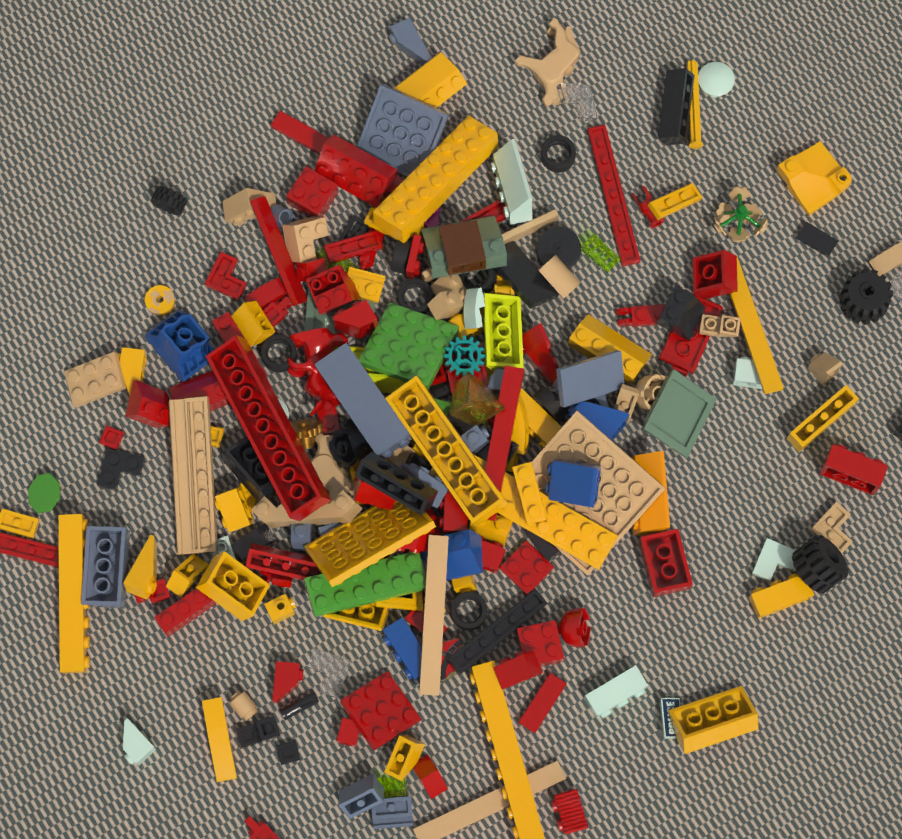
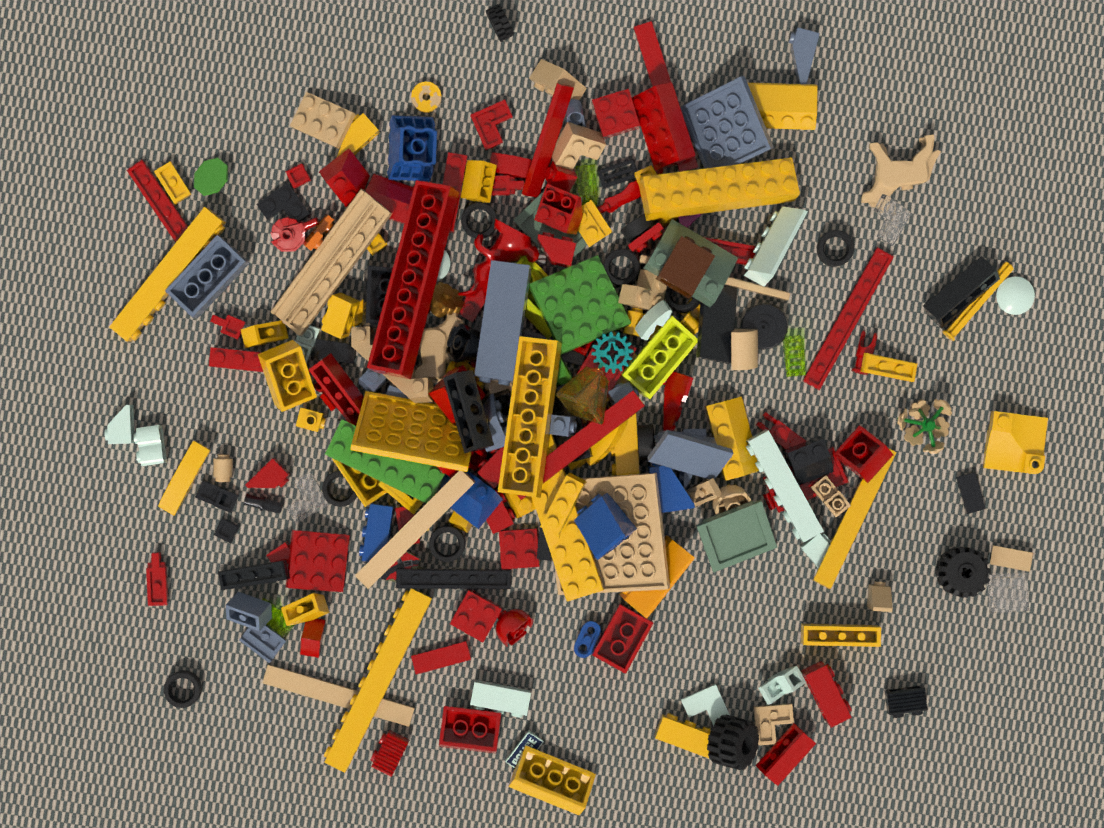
camera: 45 degrees right, 15 degrees up
(142, 484) = (290, 234): none -> piece
(143, 574) = (231, 306): yellow slope -> none
(165, 468) = (314, 238): none -> orange plate
(170, 737) = (151, 445): none -> light aqua brick
(340, 765) = (253, 575): none -> black tile
(349, 655) = (327, 495): none -> black tyre
(353, 247) = (608, 185): red tile -> none
(518, 669) = (440, 622): red brick -> none
(615, 736) = (469, 729): none -> red slope
(640, 590) = (586, 638): none -> blue plate
(679, 346) = (784, 485): none -> light aqua brick
(815, 492) = (782, 683): none -> light aqua brick
(867, 542) = (785, 754): none -> red brick

